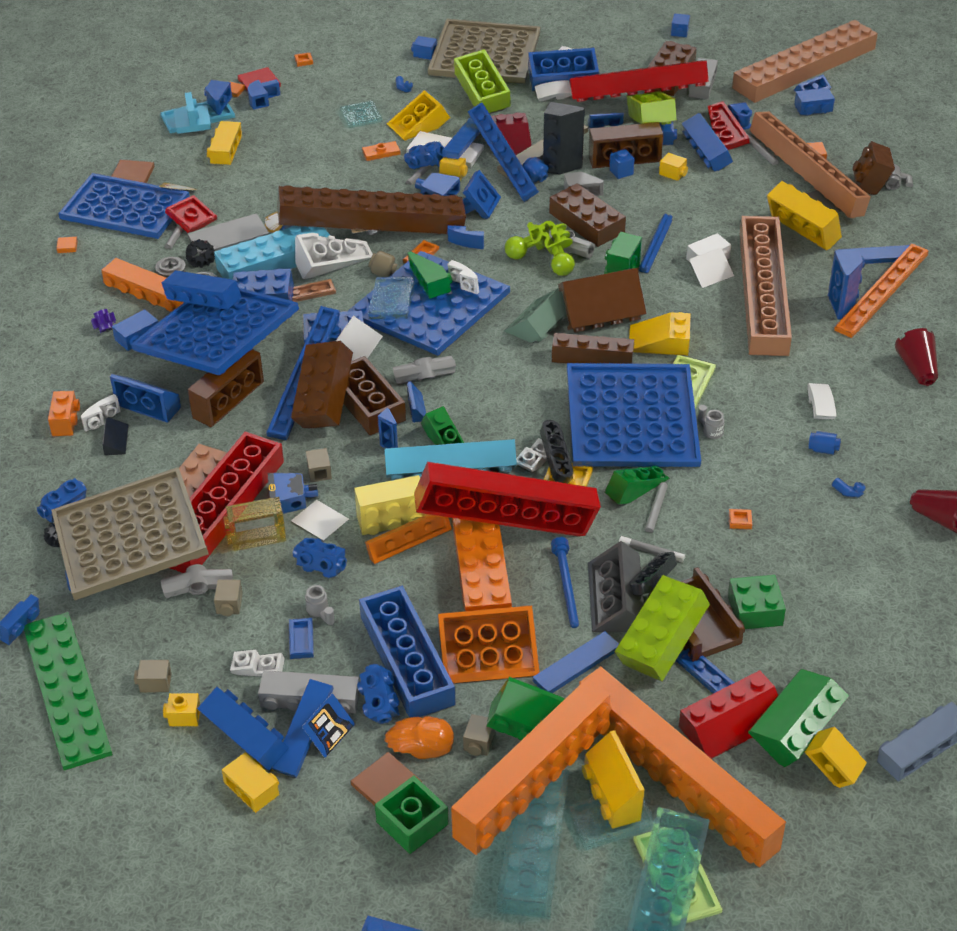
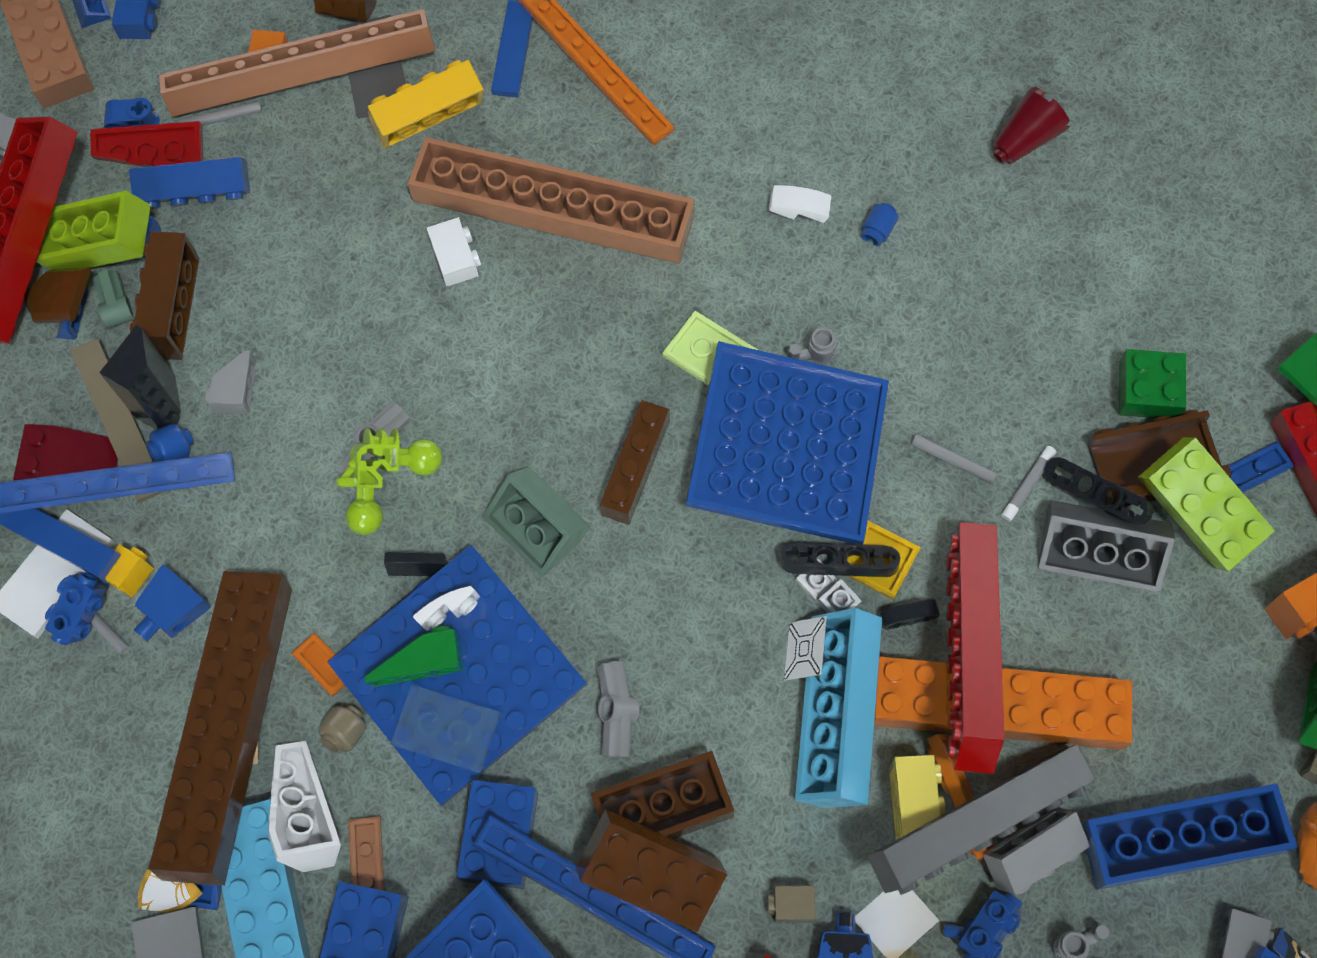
camera: 75 degrees left, 25 degrees up
(359, 338) = (542, 802): white sticker -> none
(374, 566) = (1036, 851): none -> light grey brick
(378, 685) = (1259, 885): blue brick -> none
(381, 150) = (18, 679): orange plate -> none
(387, 430) = (758, 786): blue slope -> none
(389, 522) = (979, 819): none -> dark grey brick
(416, 402) = (684, 736): blue slope -> none
(440, 427) = (763, 707): green slope -> none
(470, 239) = (306, 593): blue slope -> none
(480, 195) = (216, 544): blue bracket -> none
(488, 644) = (1177, 727): orange slope -> none
(491, 268) = (414, 563): none -> black tile
(560, 548) = (1017, 598): blue piece -> none
(576, 663) = (1214, 623): tile -> none
(587, 214) = (314, 394): reddish brown brick -> none
(603, 299) = (540, 419): reddish brown panel -> none
(609, 108) = (57, 295): none -> reddish brown tile
(621, 164) = (202, 314): blue brick -> none
(624, 253) = (451, 369): green brick -> none
(633, 483) = (915, 474): green slope -> none
(655, 243) = (402, 317): blue axle -> none
(662, 334) = (619, 363): yellow slope -> none
(673, 166) = (231, 243): yellow brick -> none
(711, 267) = (490, 257): white sticker -> none
(740, 519) = (993, 363): orange tile -> none
(845, 280) = (601, 98): blue slope -> none
(849, 491) = (966, 222): blue arm -> none
(919, 354) = (751, 62): dark red cone -> none

